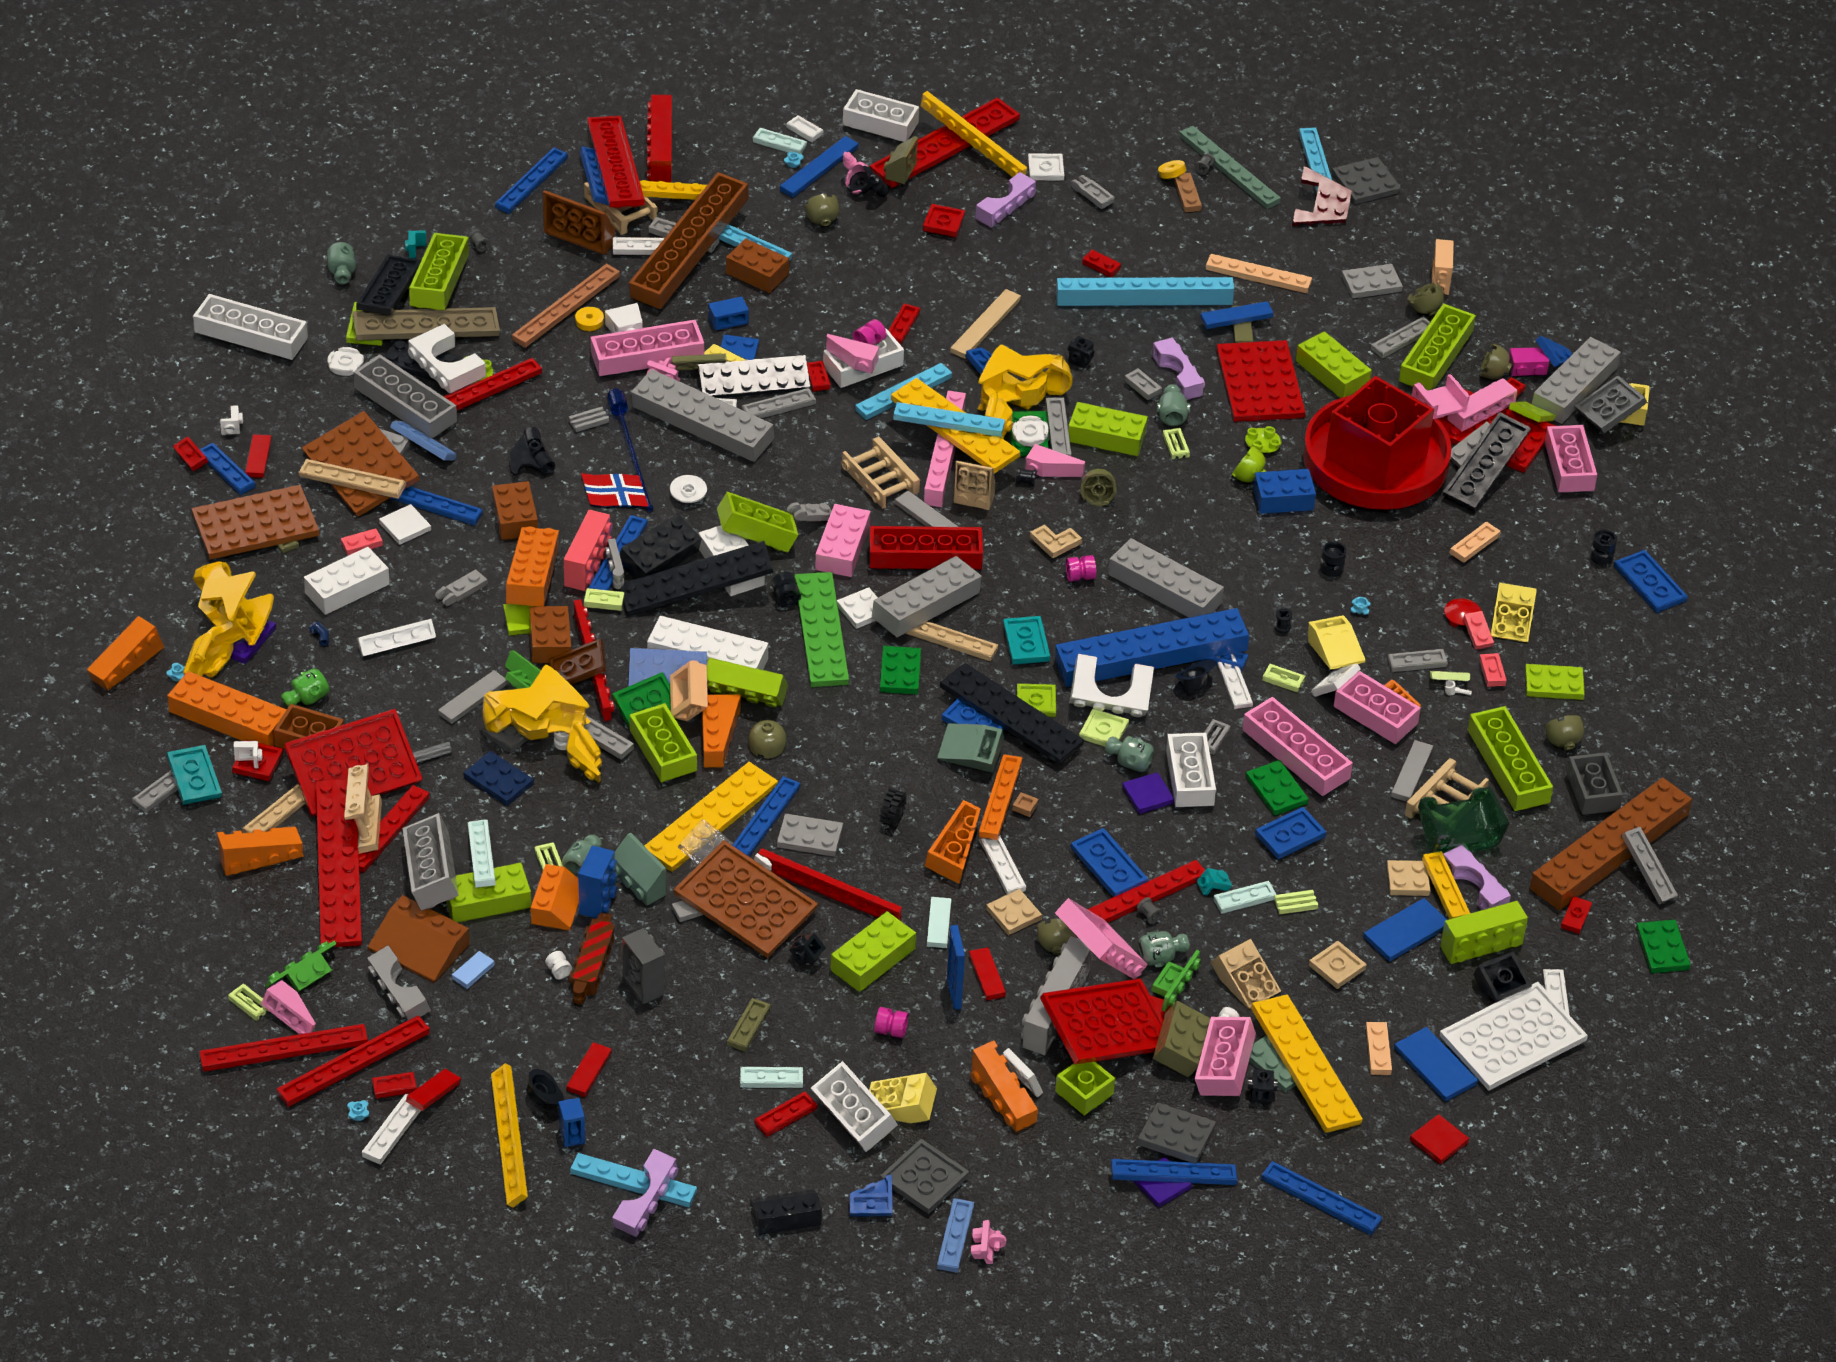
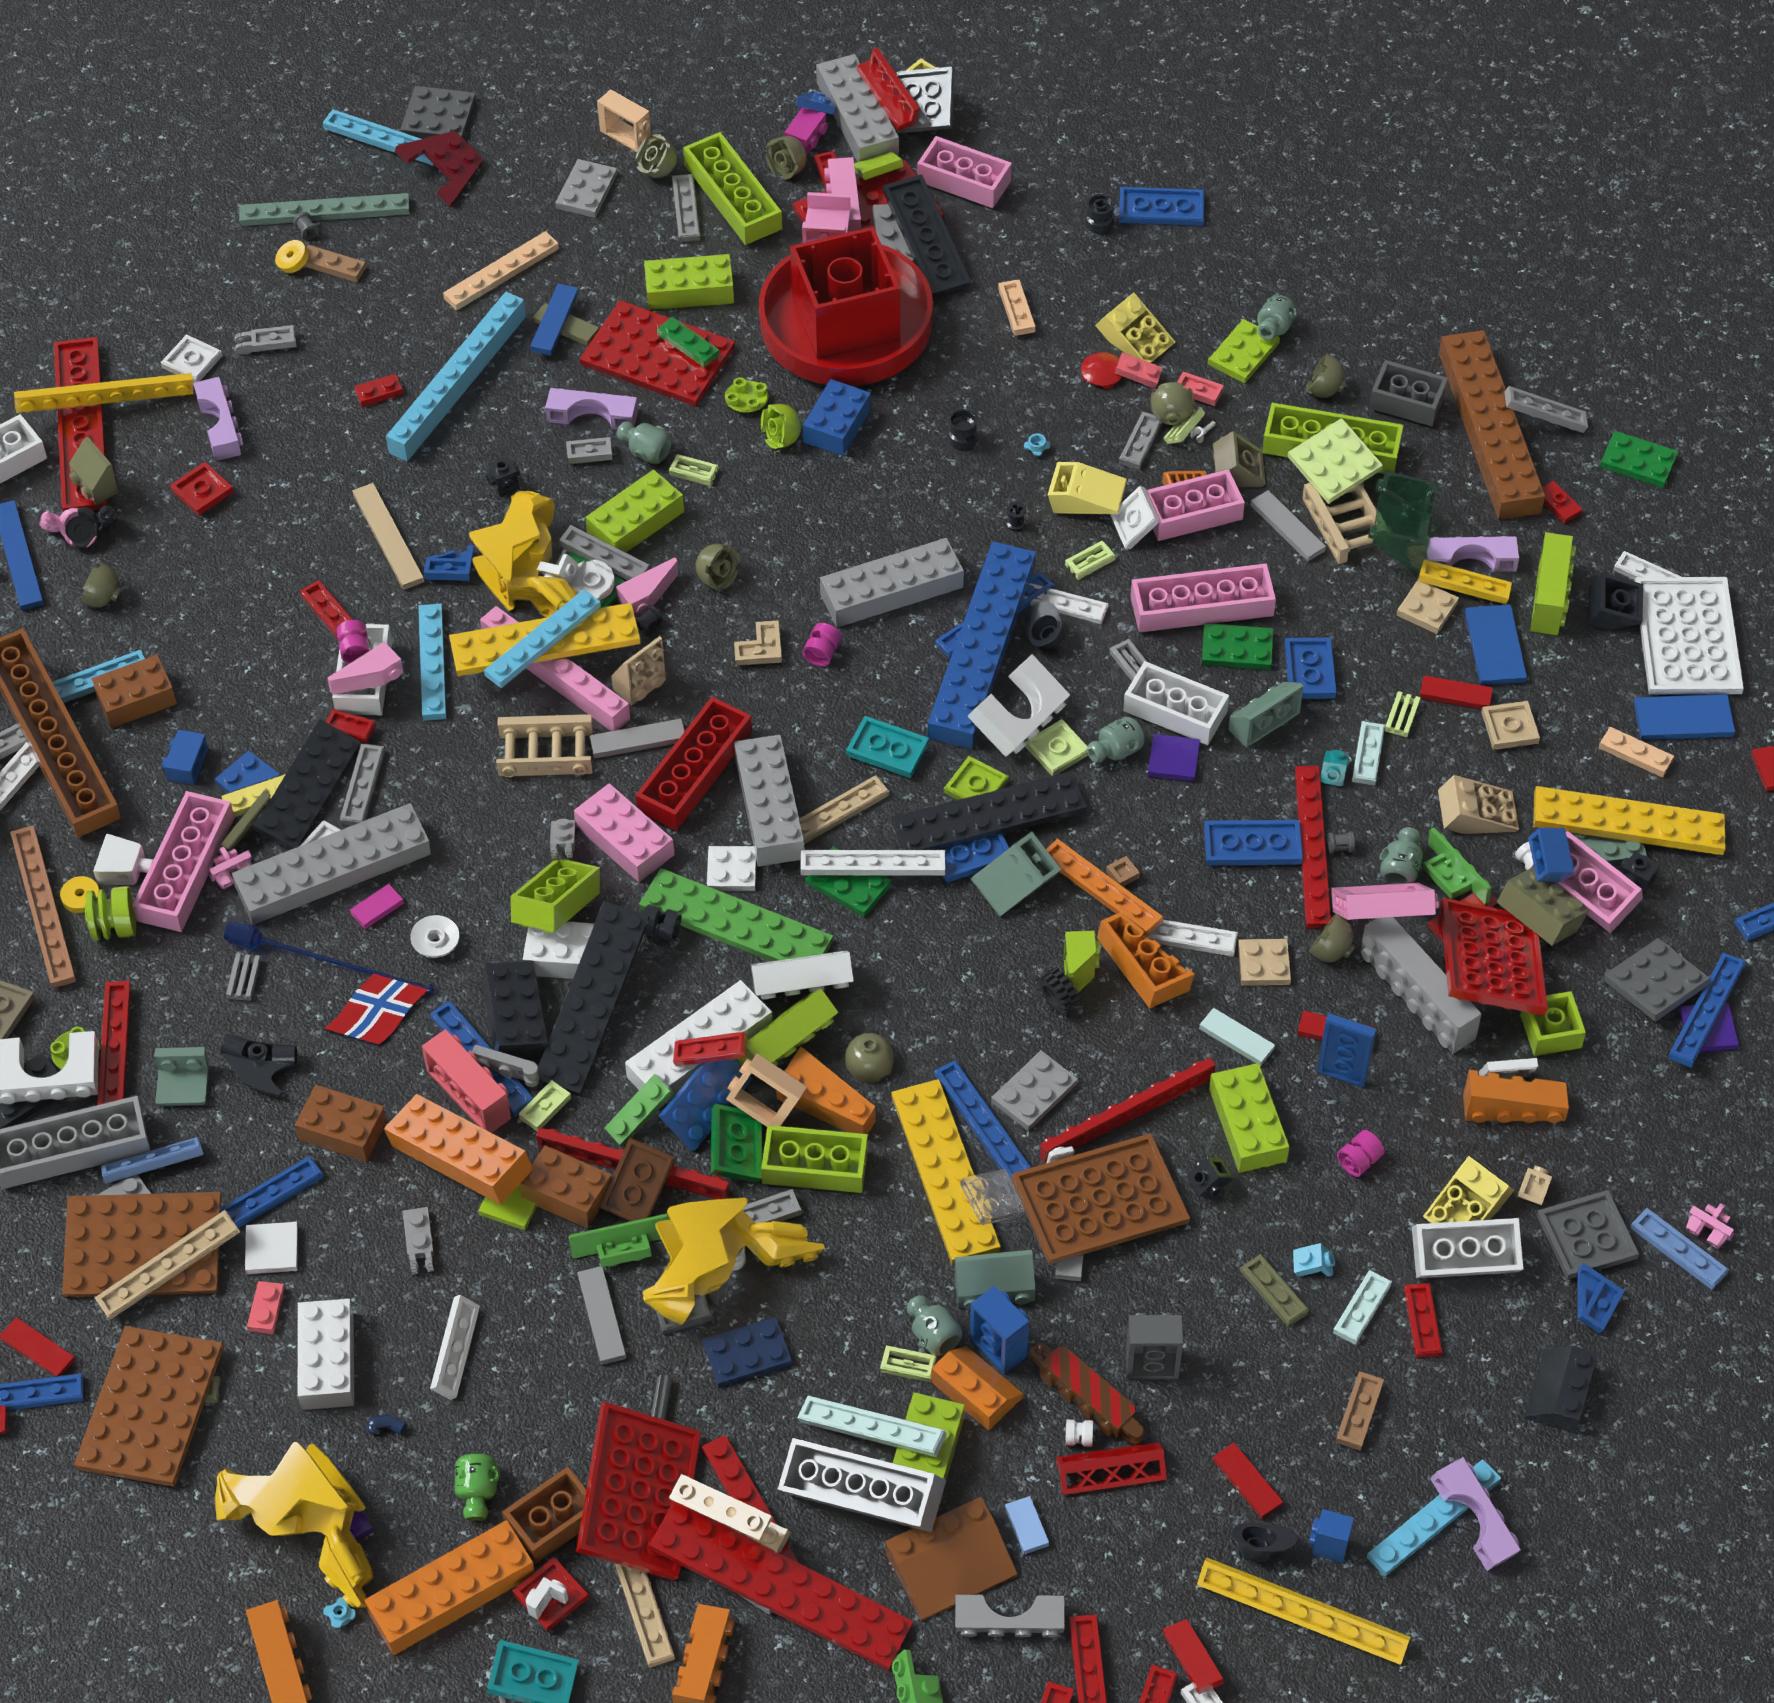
camera: 55 degrees left, 10 degrees up
(492, 426) = (181, 1076): none -> sand green bracket
(550, 987) = (1111, 1458): none -> red fence
(576, 332) = (110, 913): none -> lime wheel
(632, 639) = (639, 1109): none -> bright green plate
(685, 1105) = (1359, 1411): none -> medium nougat plate
(691, 454) = (376, 906): none -> dark pink tile
(695, 644) = (710, 1049): none -> red tile
(788, 1035) = (1313, 1260): none -> medium azure bracket
(797, 671) = (802, 973): none -> white brick
(918, 668) = (872, 862): none -> white plate
(923, 807) = (1081, 957): none -> lime slope
(943, 1129) = (1535, 1185): none -> tan bracket
(1020, 408) = (565, 569): none -> white bracket
(1217, 1013) = (1551, 854): none -> blue brick
(1225, 823) = (1266, 712): none -> sand green slope
(1277, 387) = (688, 342): none -> green plate
(1342, 924) = (1455, 692): none -> red tile
(1443, 719) = (1241, 459): none -> dark tan slope
(1456, 656) = (1172, 403): none -> olive cylinder
(1482, 761) = (1335, 460): none -> yellowish green plate
(1595, 681) = (1276, 317): none -> sand green piece
(1596, 380) = (889, 90): none -> red fence

